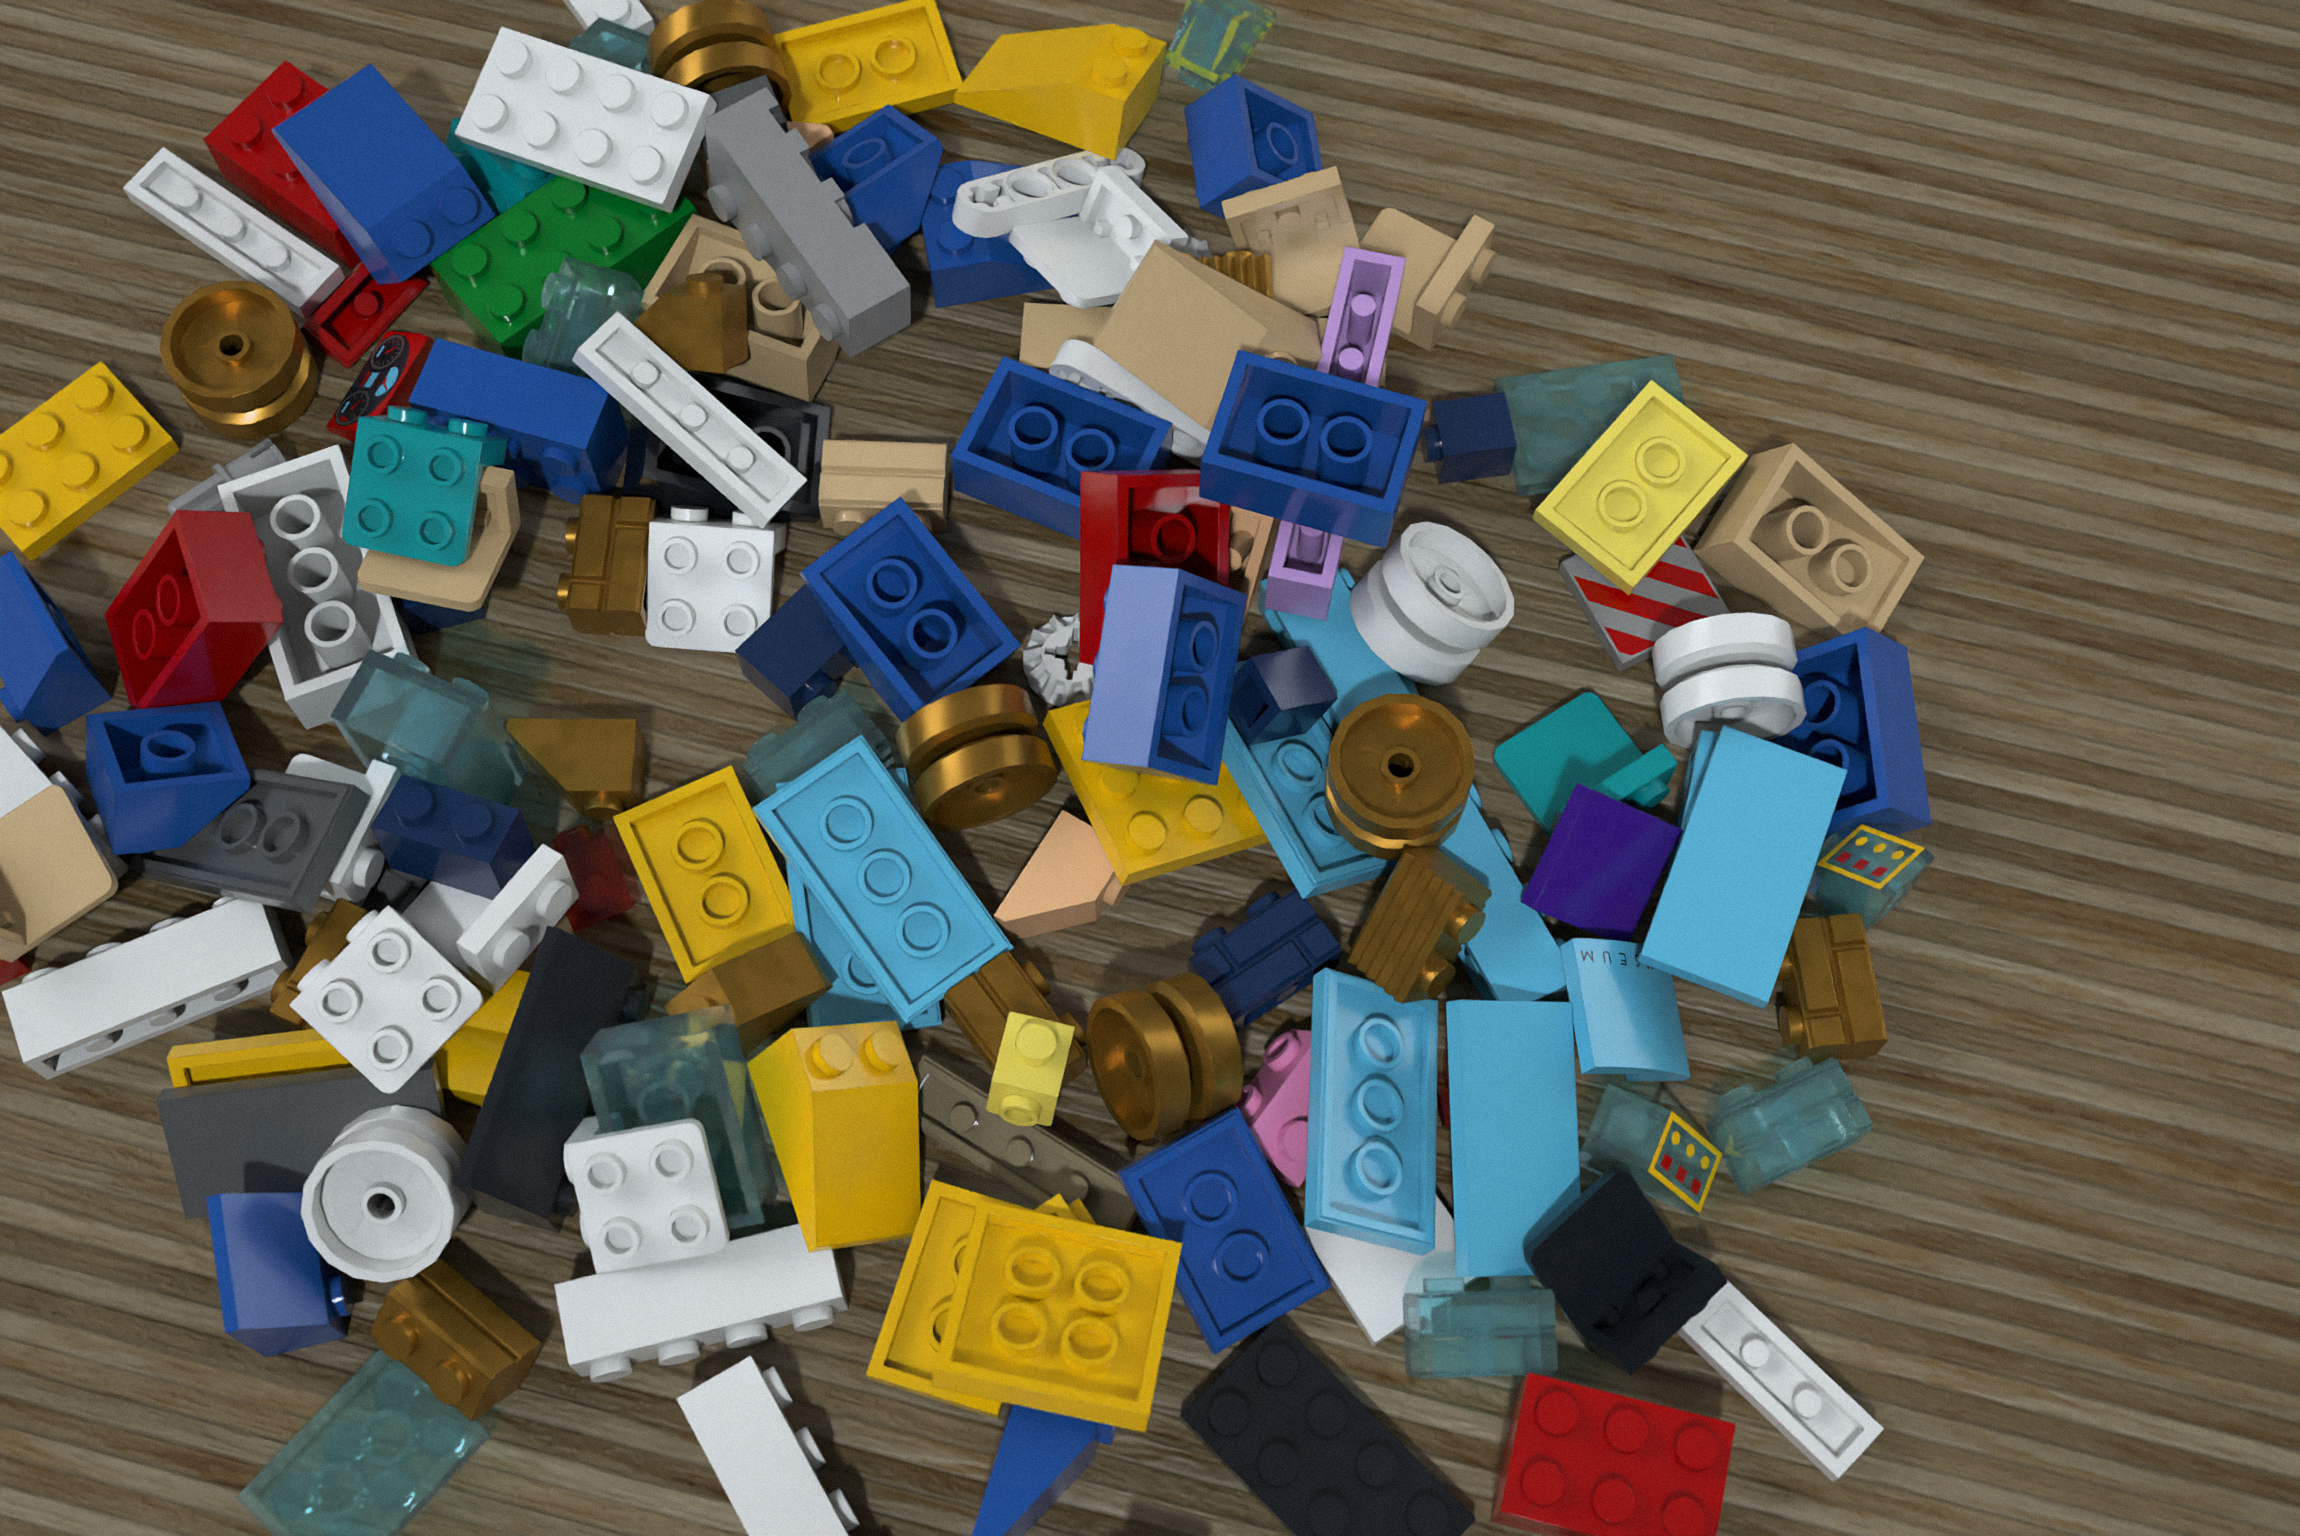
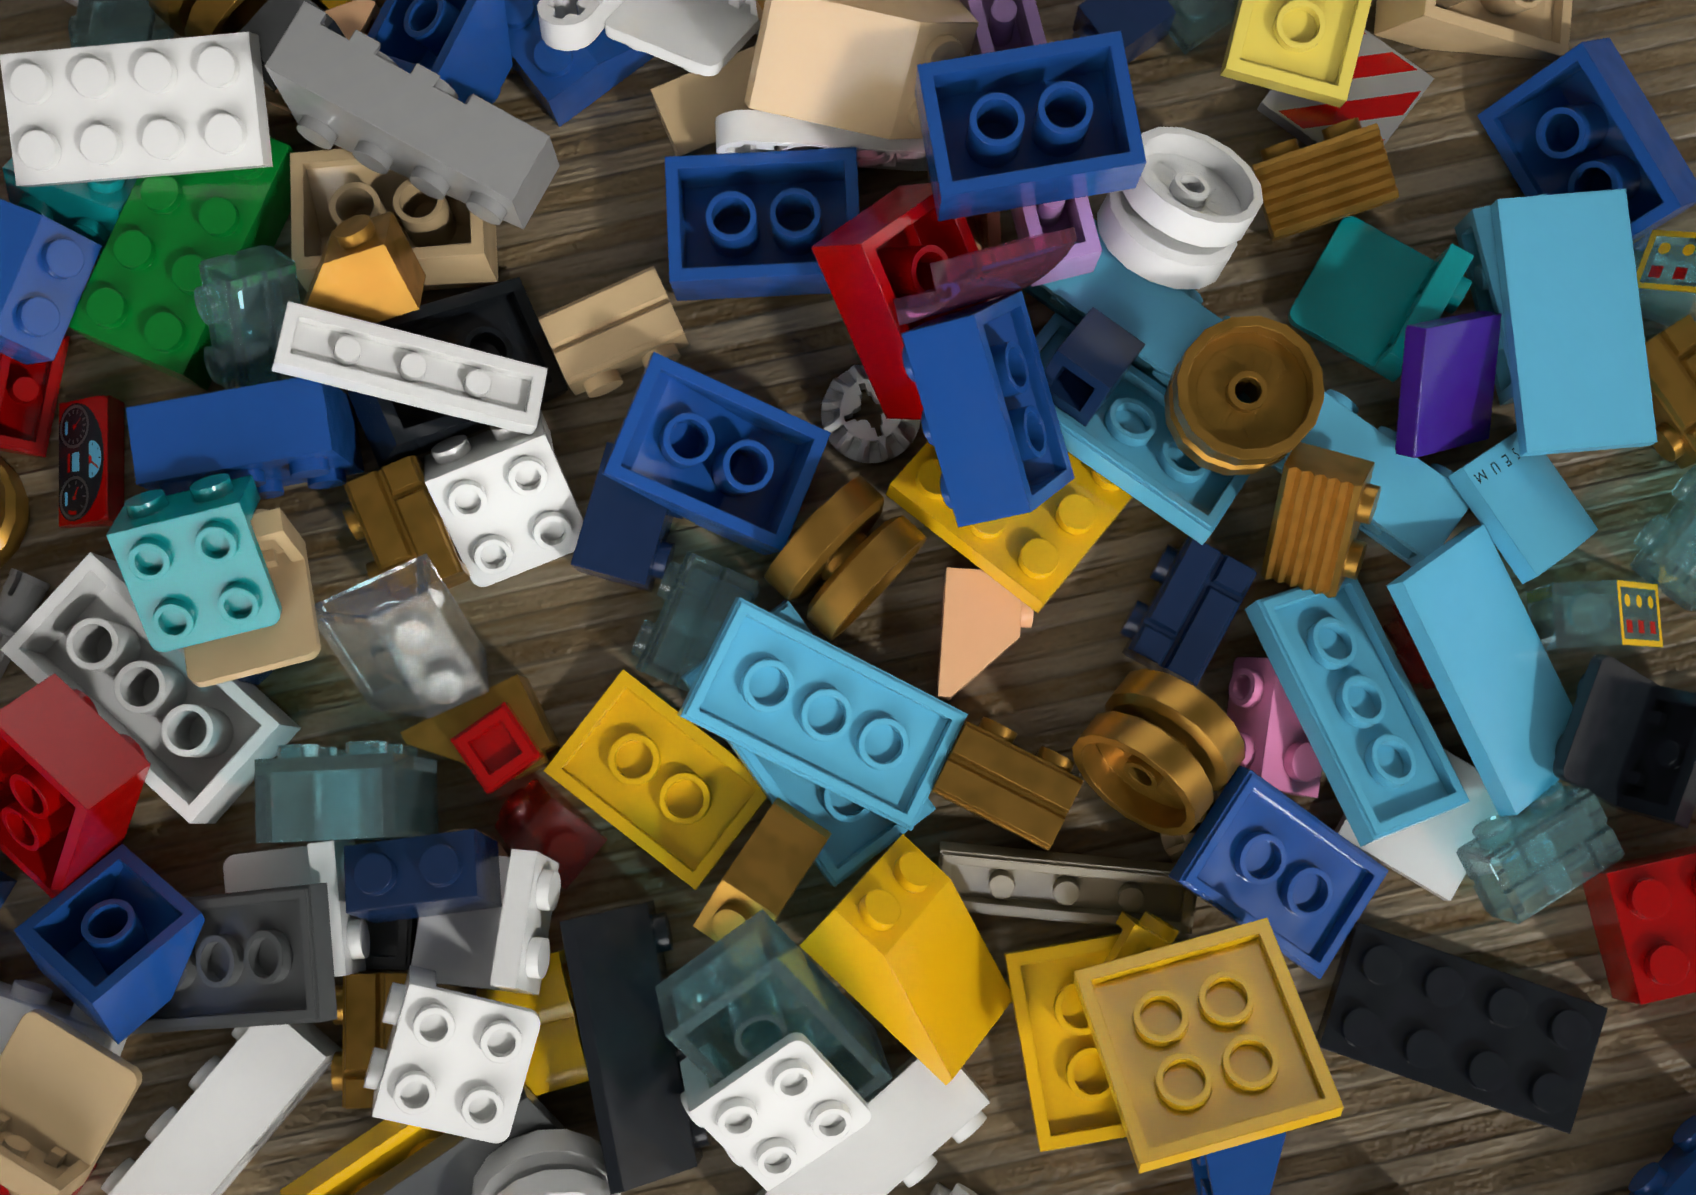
camera: 20 degrees left, 15 degrees up
(557, 645) = (405, 641): none -> clear slope
(582, 768) = (497, 748): none -> red tile
(1029, 1070) = (1048, 822): light yellow bracket -> none
(1217, 550) = (986, 274): none -> clear pink slope
(1579, 646) = (1325, 179): none -> pearl gold brick
(1729, 674) = (1472, 146): white wheel -> none

